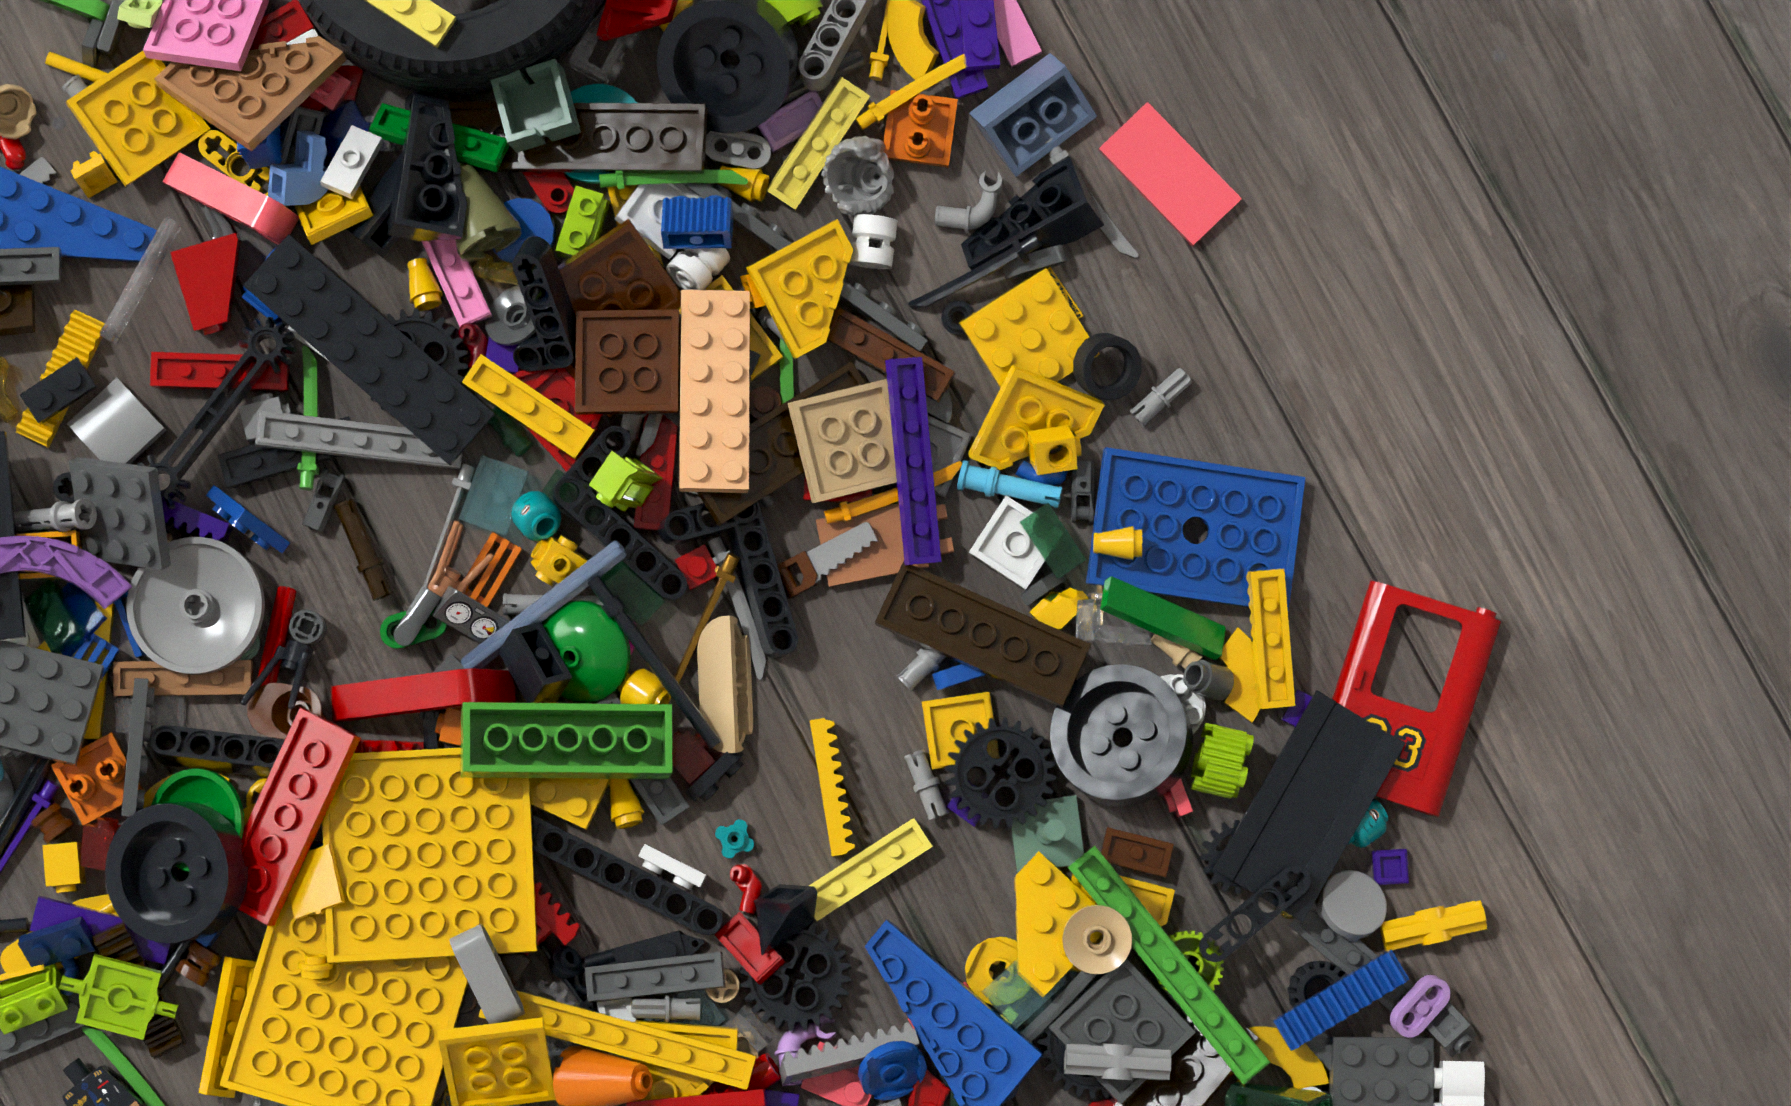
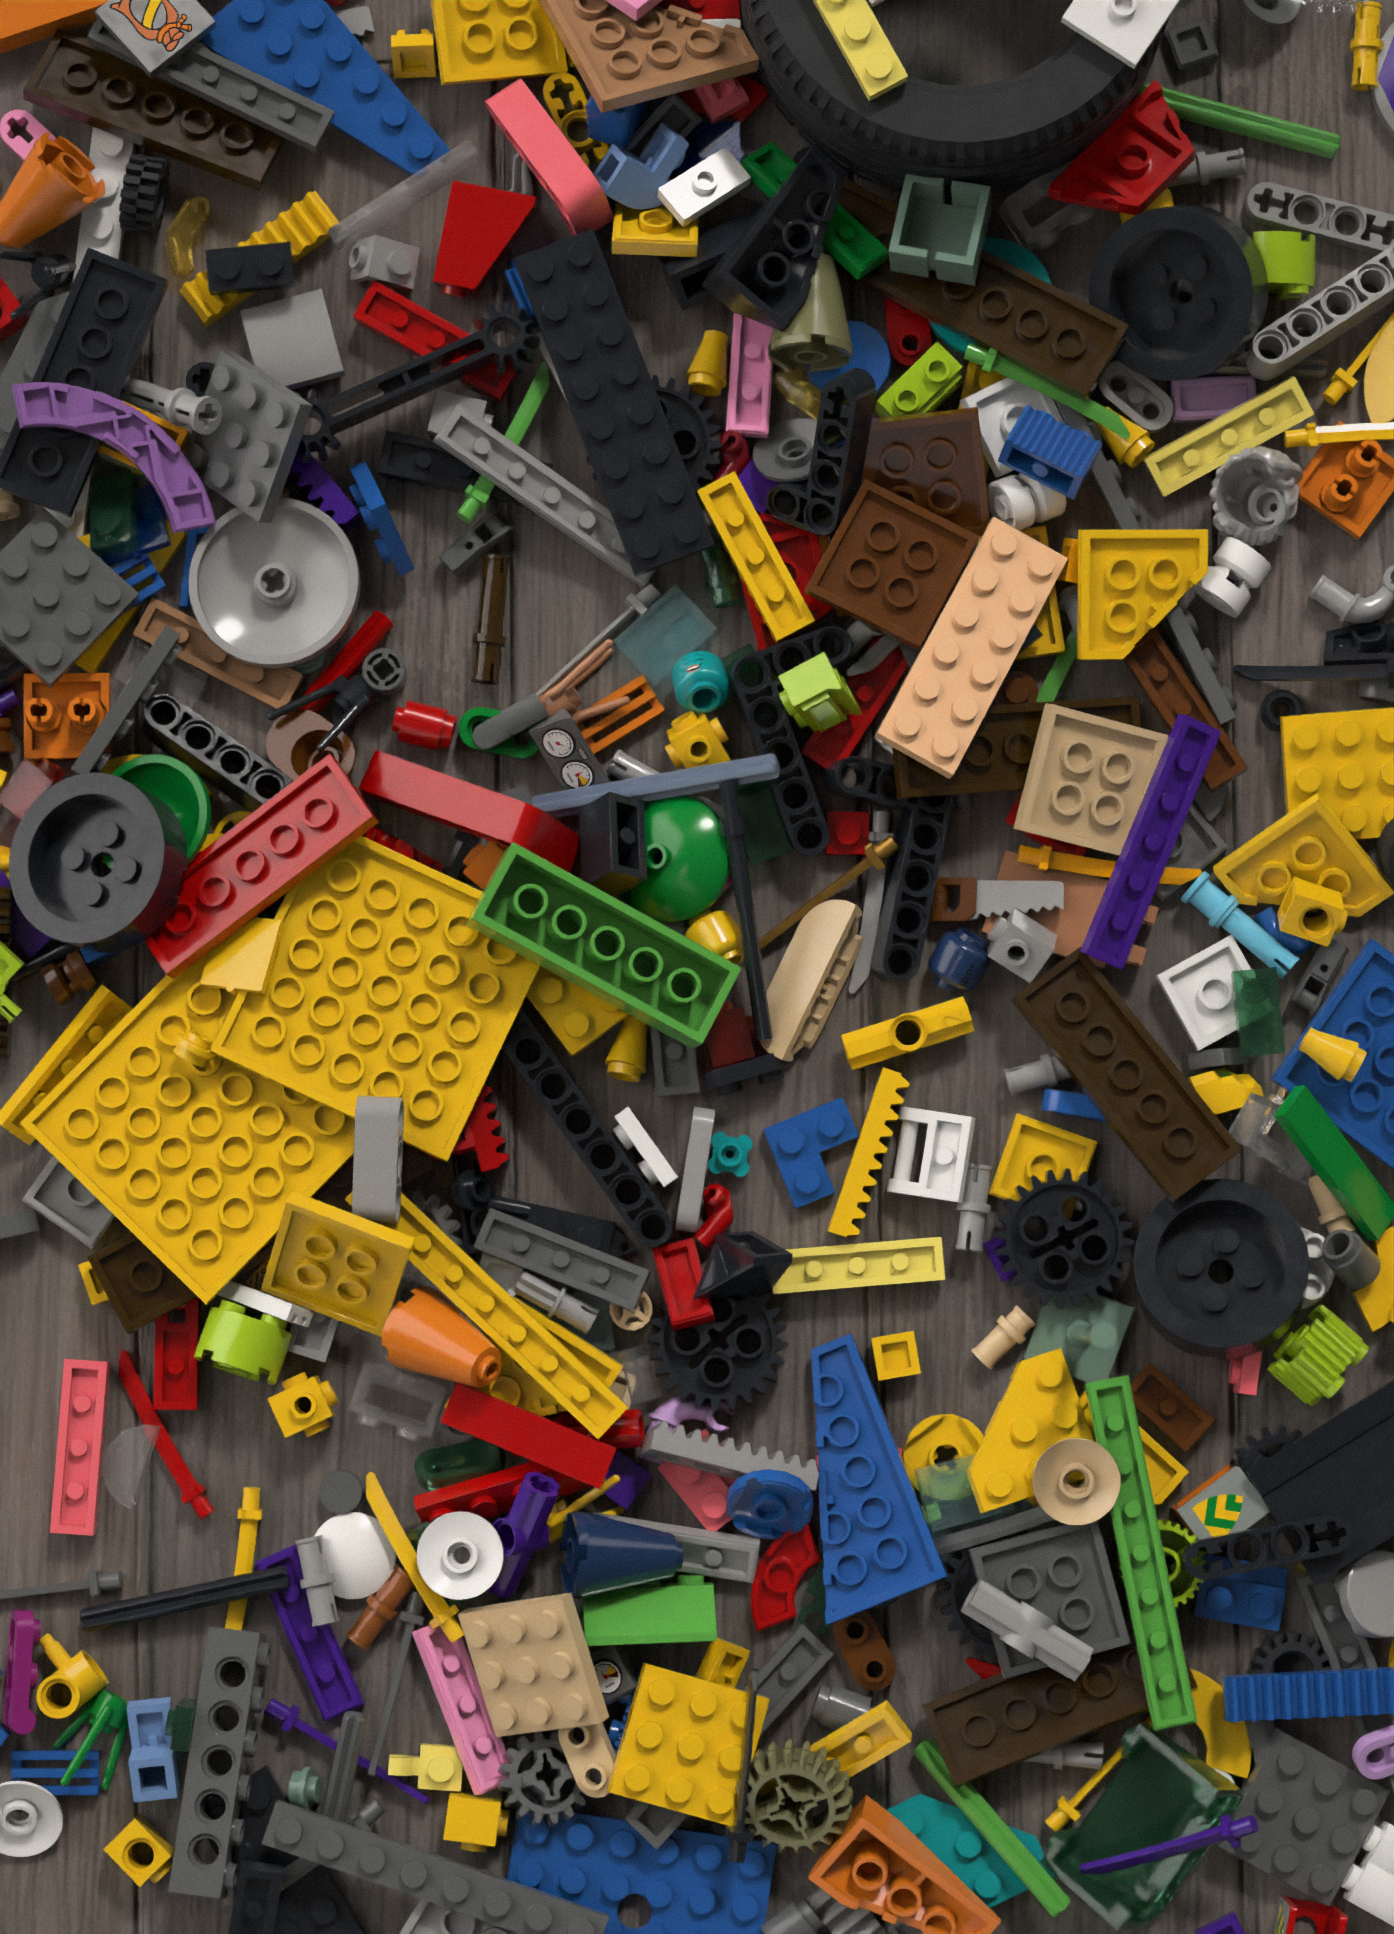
camera: 30 degrees right, 0 degrees up
(151, 334) = (384, 261): none -> light grey bracket
(356, 650) = (424, 725): none -> red brick
(715, 862) = (695, 1169): none -> light grey beam
(779, 806) = (798, 1145): none -> blue plate
(824, 615) = (959, 960): none -> dark blue head
(831, 670) = (934, 1025): none -> yellow piece
(861, 581) = (1021, 944): none -> light grey brick
(886, 761) = (943, 1159): none -> white plate
(926, 918) = (895, 1355): none -> yellow plate
(995, 864) = (1003, 1337): none -> tan pin
(1209, 901) = (1221, 1505): none -> piece
(1259, 957) = (1242, 1598): none -> blue plate

